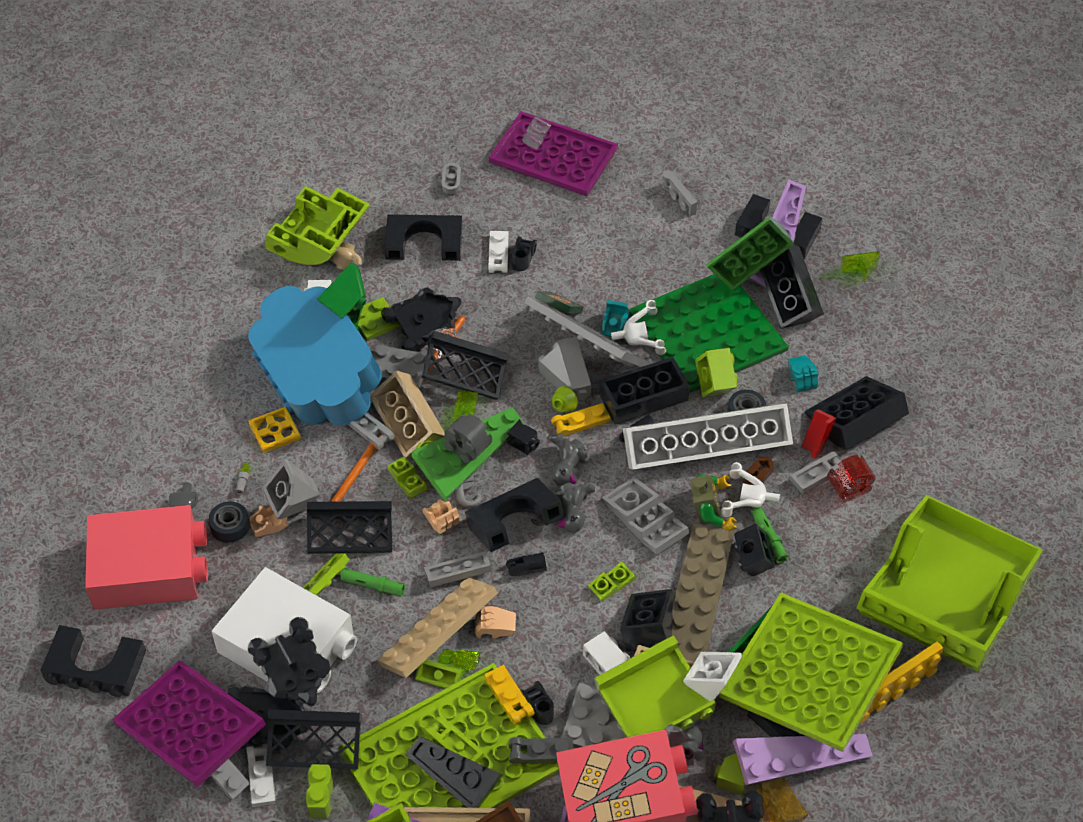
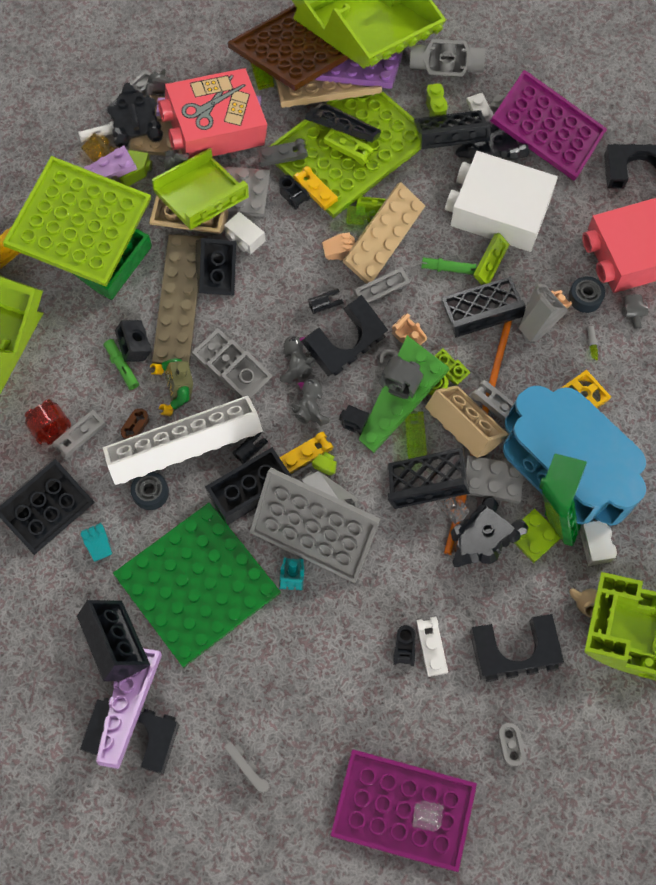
camera: 170 degrees right, 15 degrees up
(291, 663) = (484, 156): black shield -> none
(559, 302) = (351, 577): dark green tile -> none
(612, 582) = (251, 302): lime slope -> none
(637, 333) = (267, 558): white piece -> none
(711, 672) = (155, 203): white slope -> none
(716, 372) = (179, 506): lime brick -> none
(750, 253) = (155, 643): bright green slope -> none
(751, 495) = (139, 395): white piece -> none
(818, 433) = (75, 462): red panel -> none
(860, 262) = (31, 698): clear neon green slope -> none

